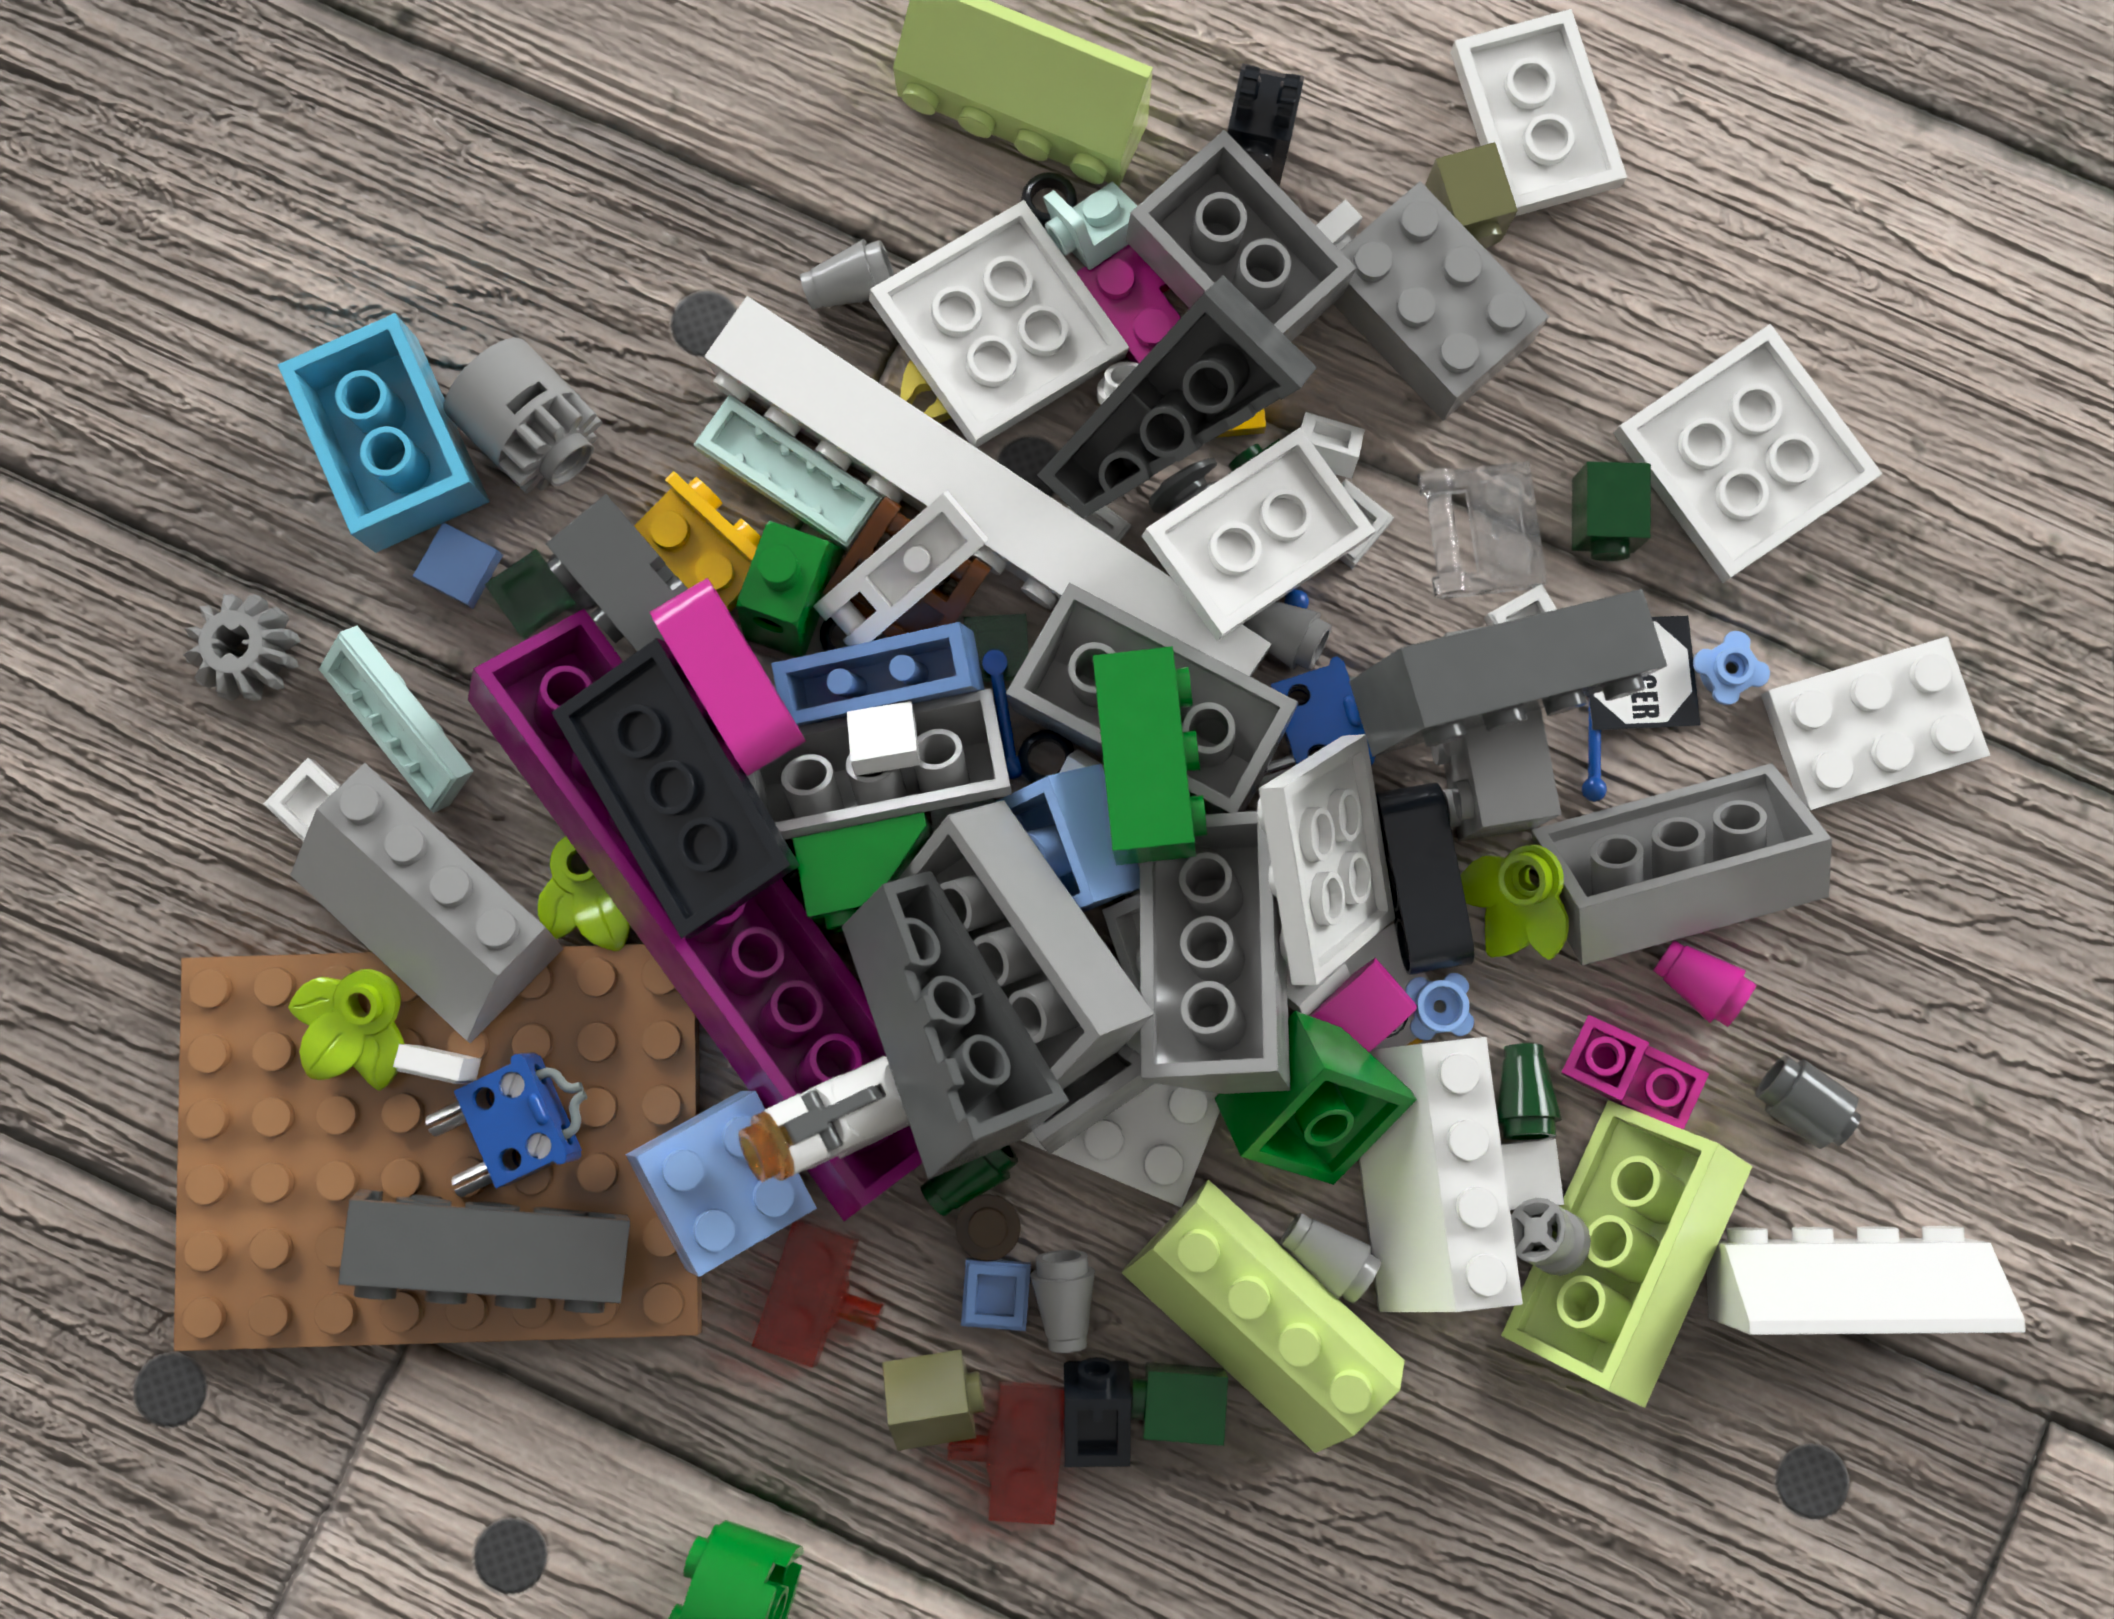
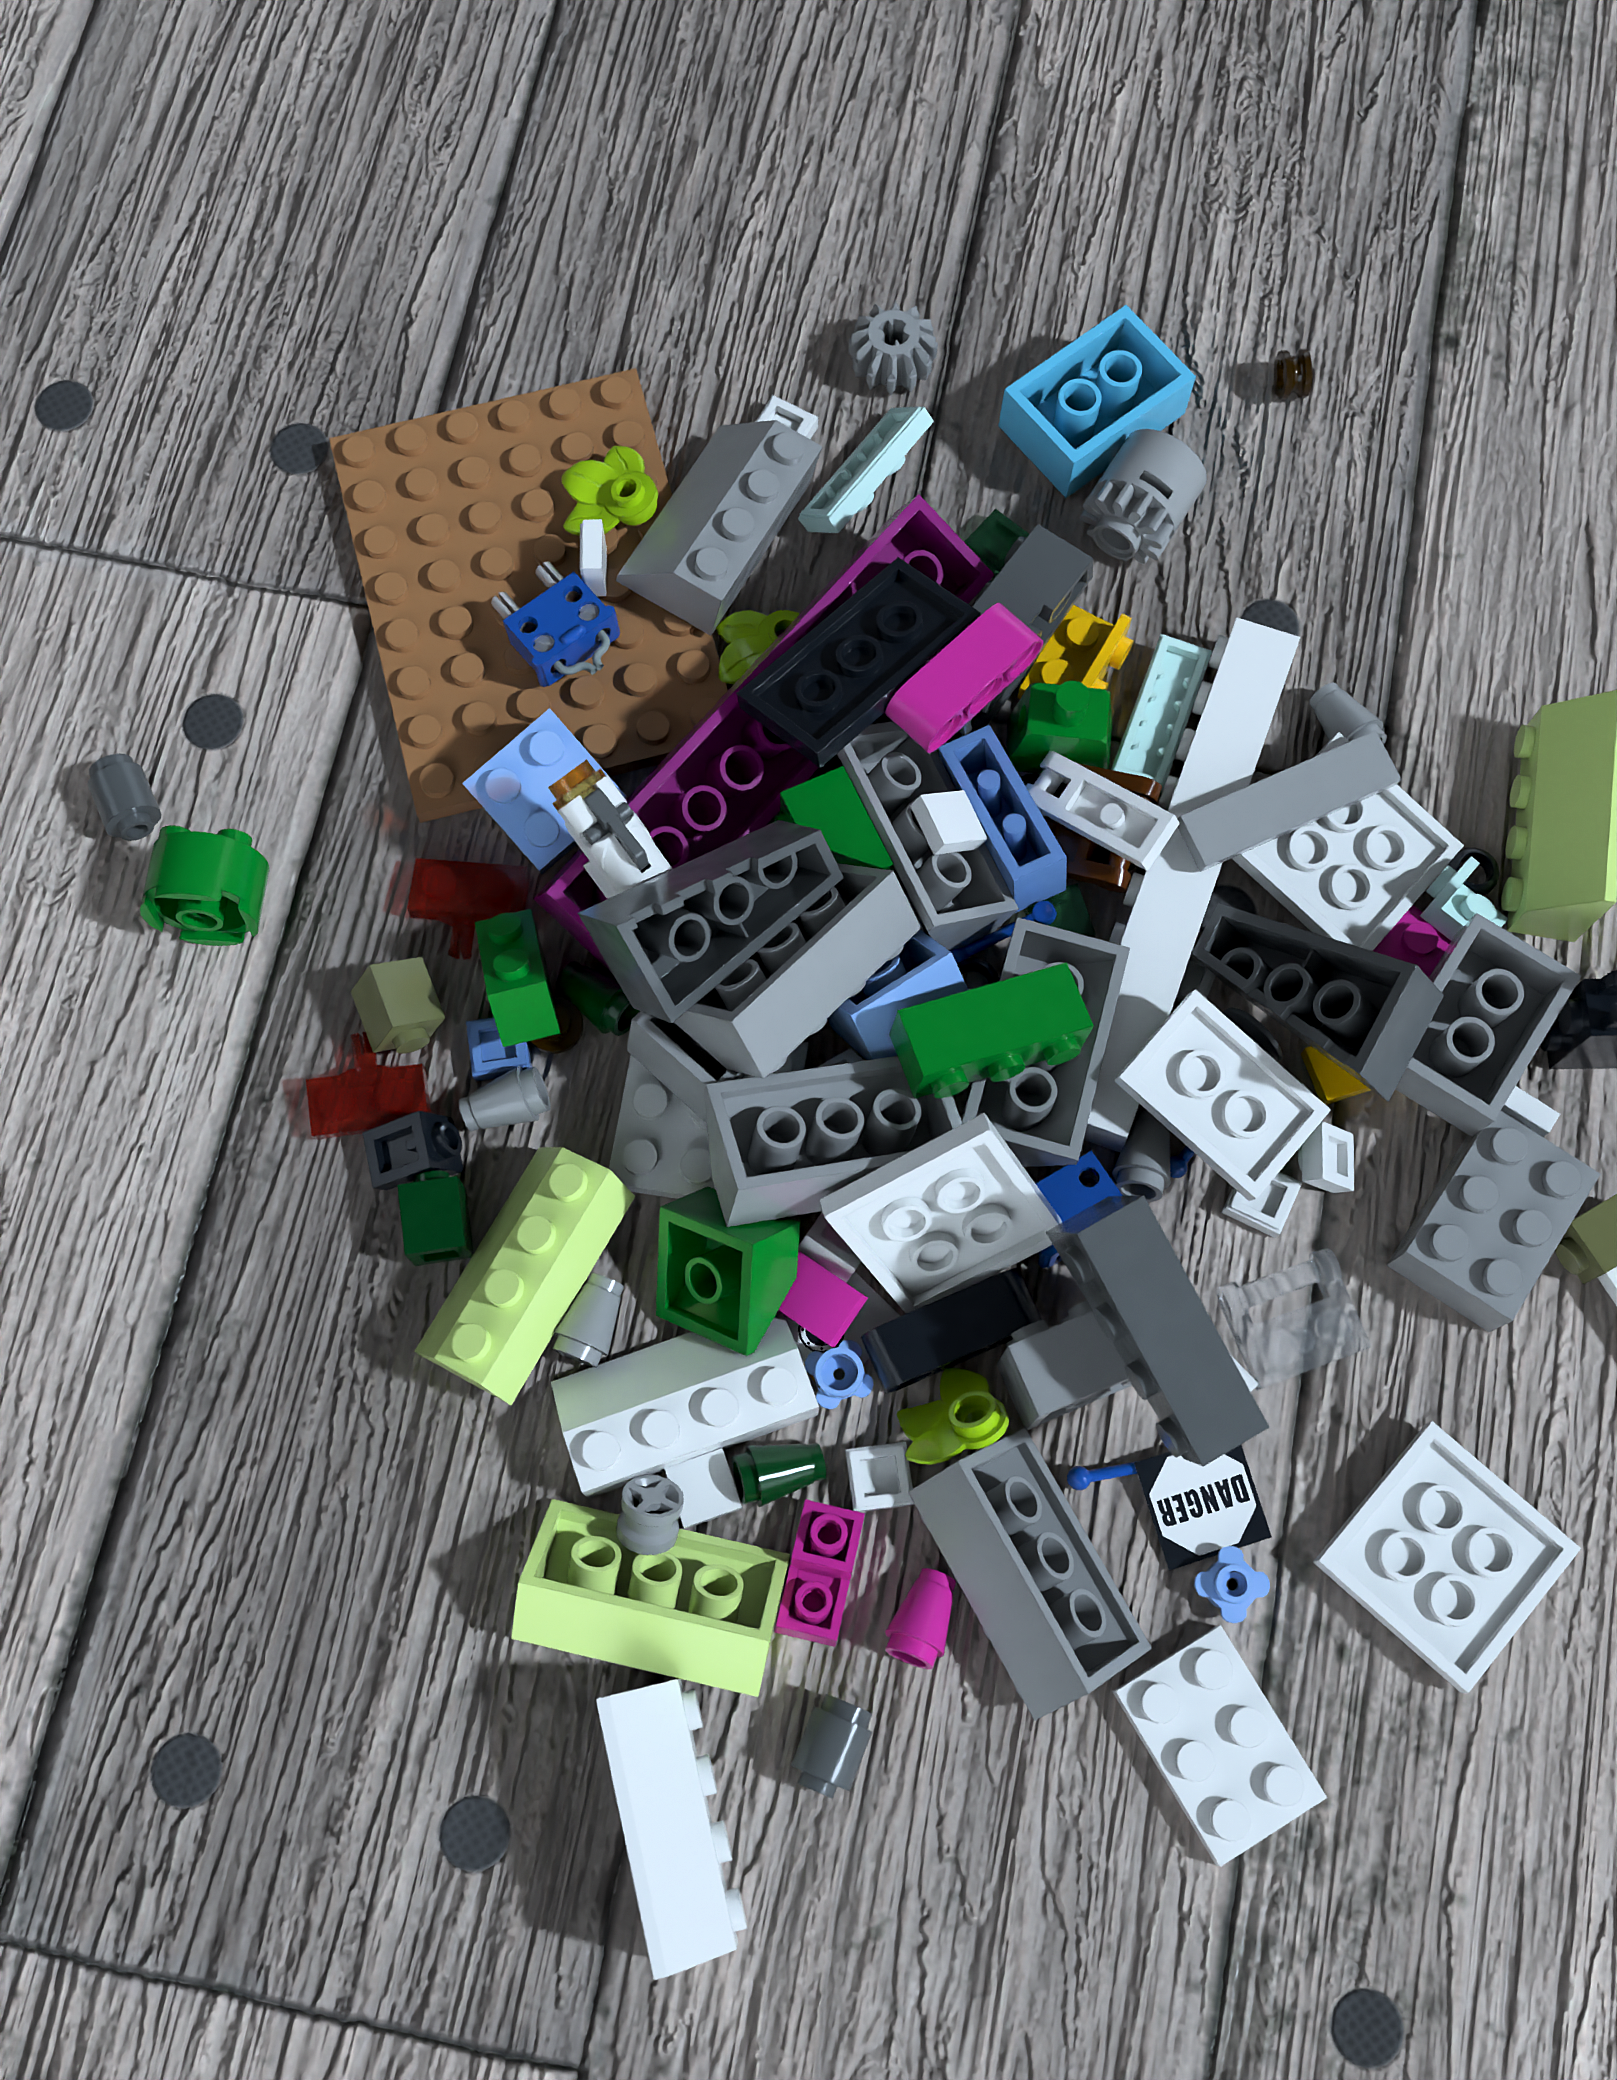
camera: 75 degrees right, 10 degrees down
(404, 203) = (1293, 374): none -> dark brown bush
(457, 565) = (1005, 487): medium blue tile -> none
(483, 1251) = (450, 621): dark grey wedge -> none
(936, 1259) = (516, 978): none -> green brick
(940, 367) = (1287, 800): none -> light grey tile
(1550, 990) = (879, 1477): none -> white tile
(1611, 509) = (1349, 1431): dark green brick -> none

